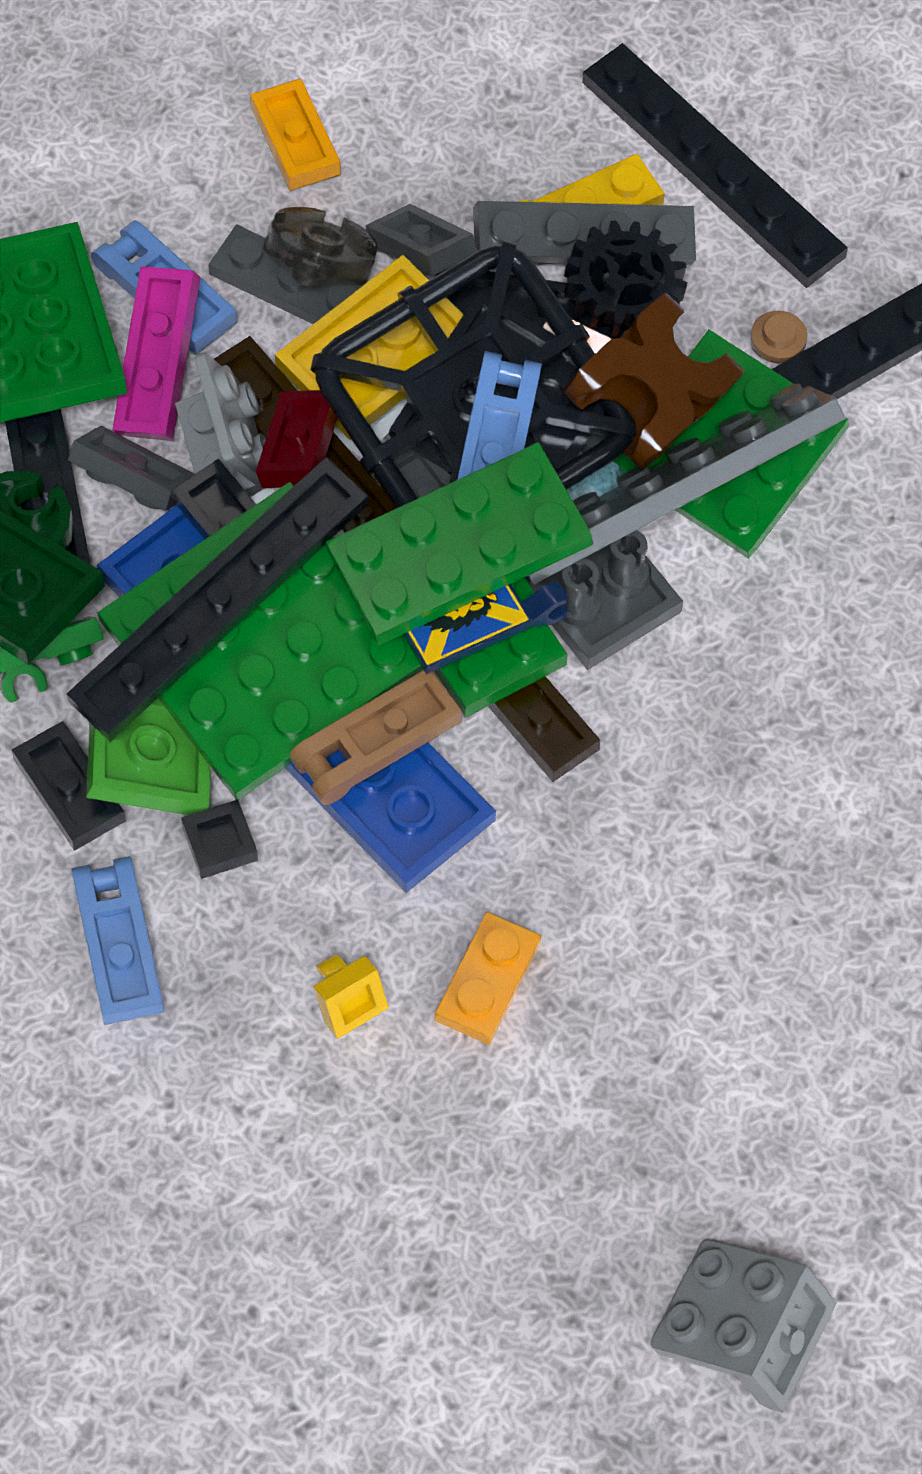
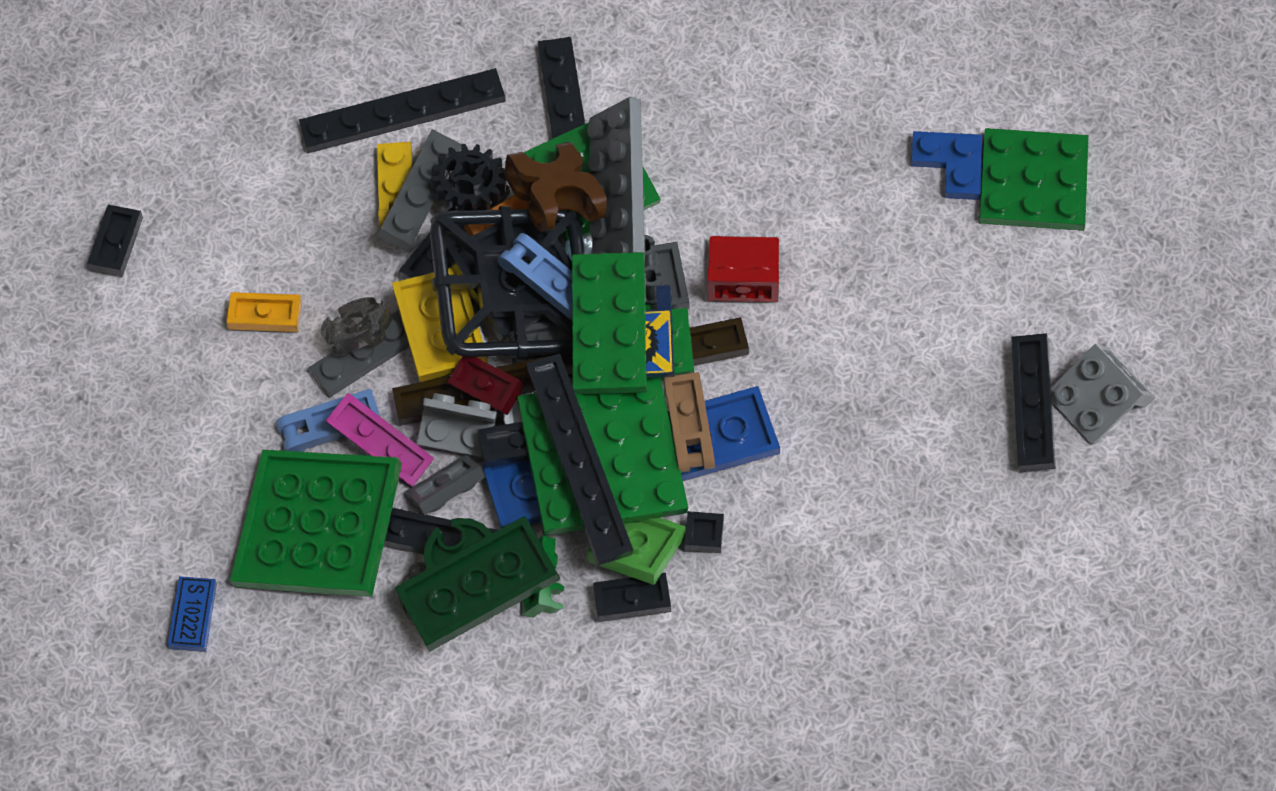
camera: 60 degrees left, 0 degrees up
(118, 942) = (739, 608): medium blue plate -> none
(349, 993) = (829, 503): yellow tile -> none
(423, 239) = (379, 272): dark grey plate -> none
(487, 978) = (850, 433): light orange plate -> none
(672, 1223) = (1033, 402): none -> black plate
(688, 712) = (743, 269): none -> red bracket
(778, 336) = (533, 126): medium nougat plate -> none

